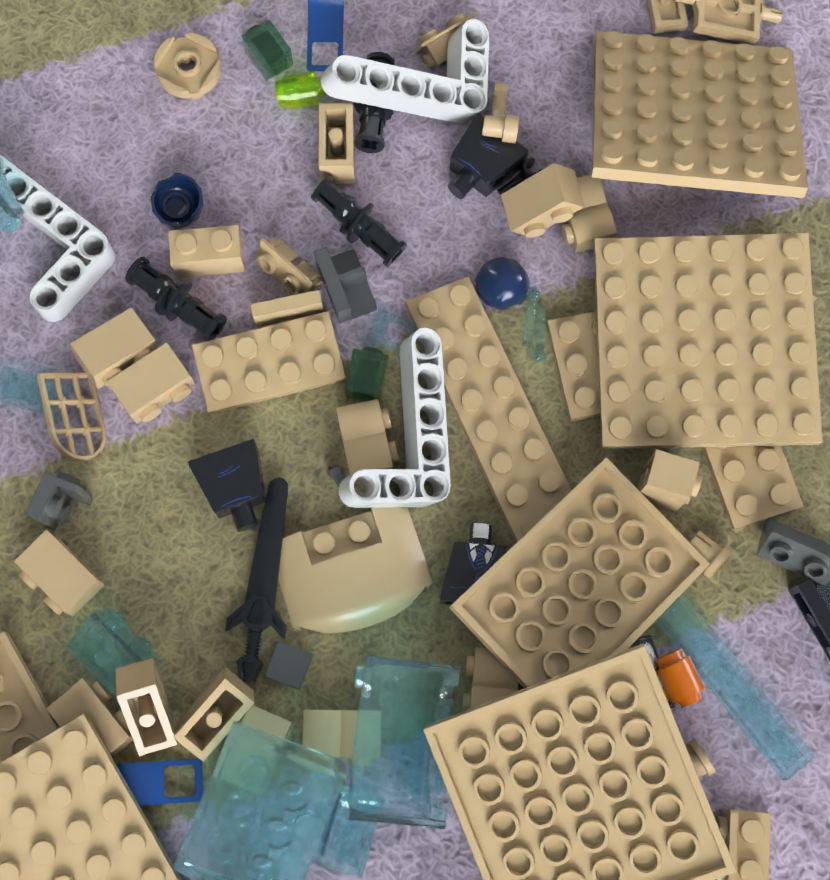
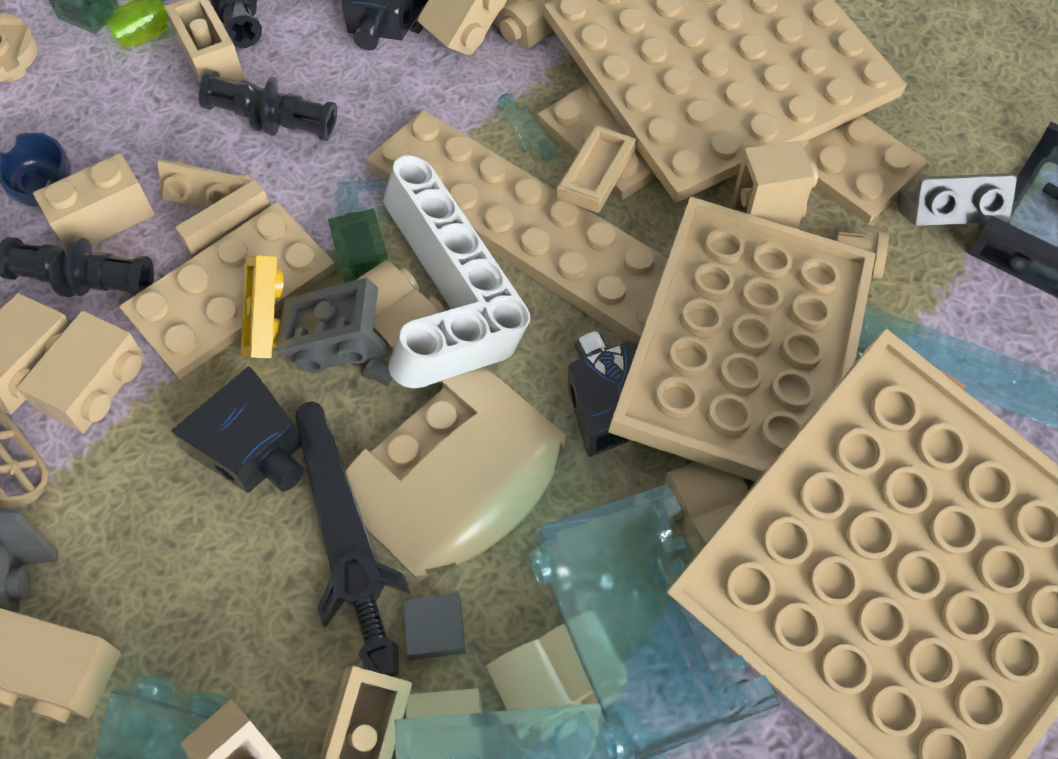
camera: 25 degrees left, 15 degrees down
(274, 406) = (261, 287): none -> yellow plate
(317, 433) = (331, 327): none -> dark grey bracket
(345, 284) = (282, 173): dark grey panel -> none
(502, 283) = (466, 100): dark blue hair -> none
(559, 395) = (596, 168): none -> tan tile

